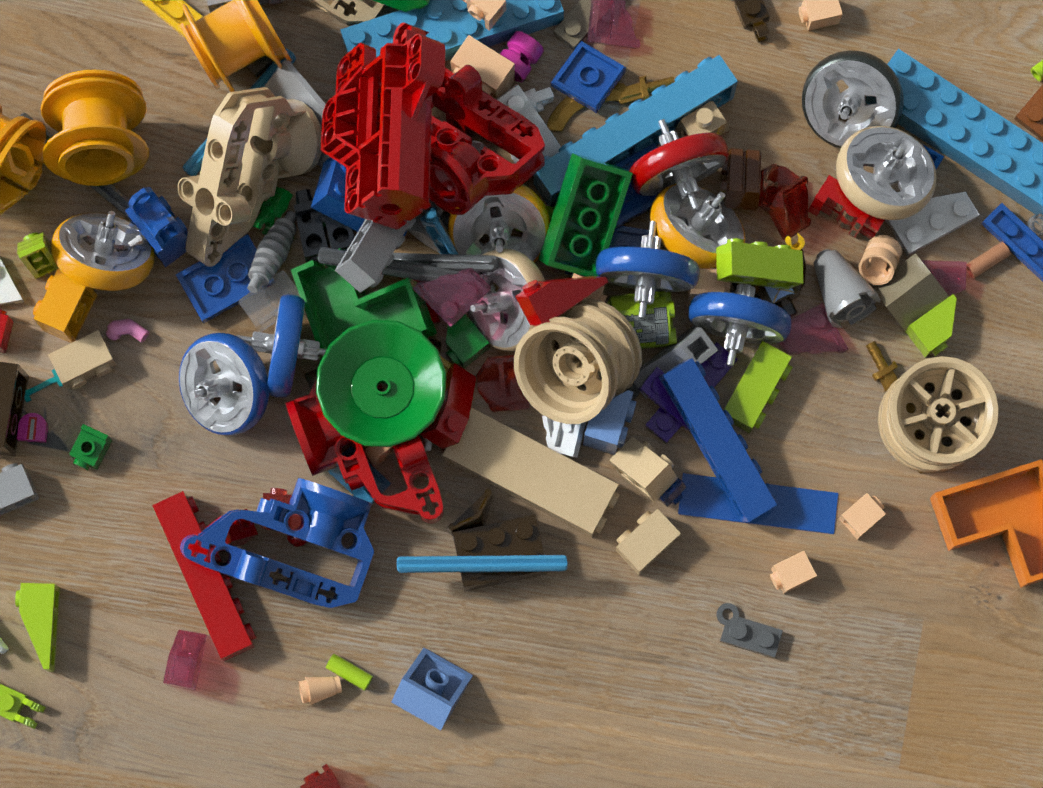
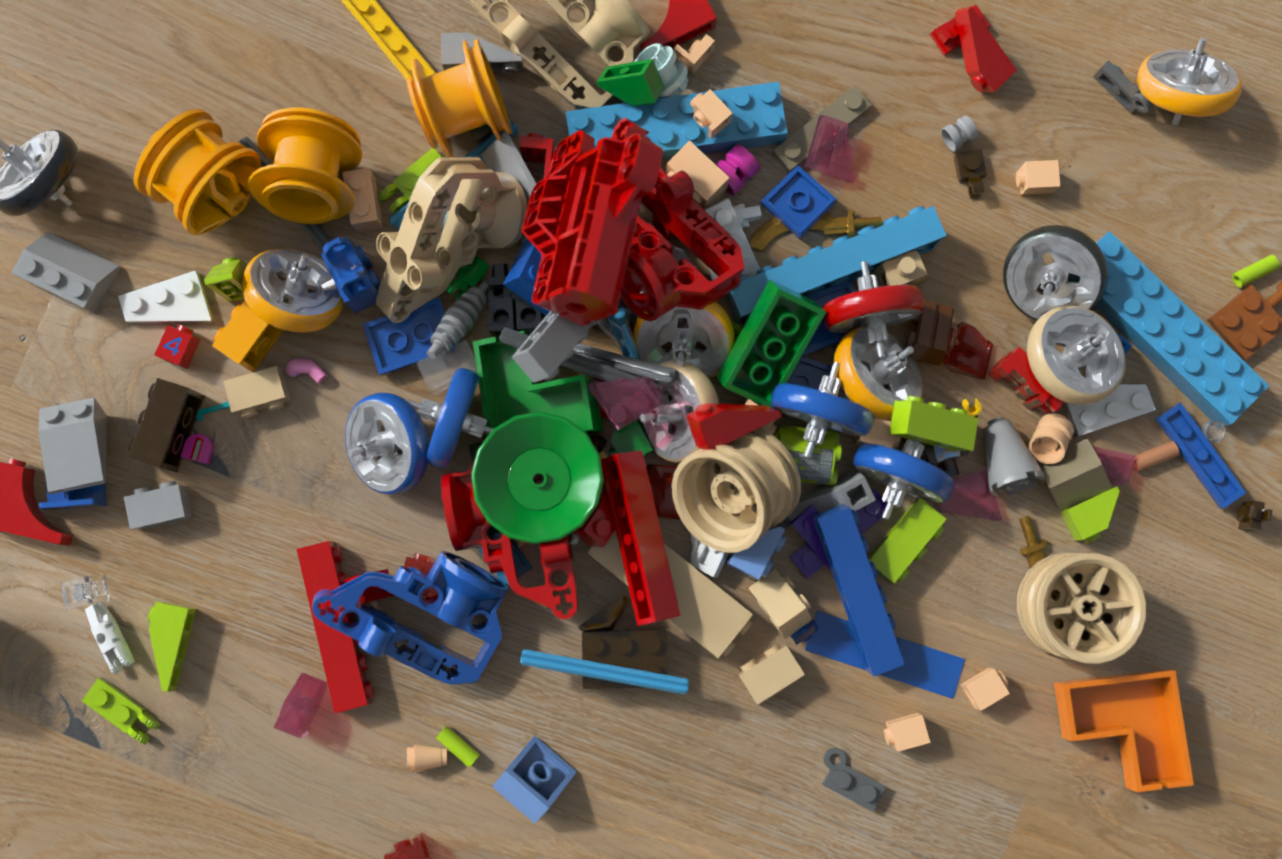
camera: 10 degrees right, 5 degrees up
(100, 446) = (257, 476): green brick -> none
(159, 164) = (366, 211): none -> light nougat brick
(197, 126) = (407, 181): none -> lime hinge
(320, 72) = (537, 149): none -> red bracket
(492, 427) = (640, 537): none -> red brick
(790, 208) = (972, 372): clear red slope -> none

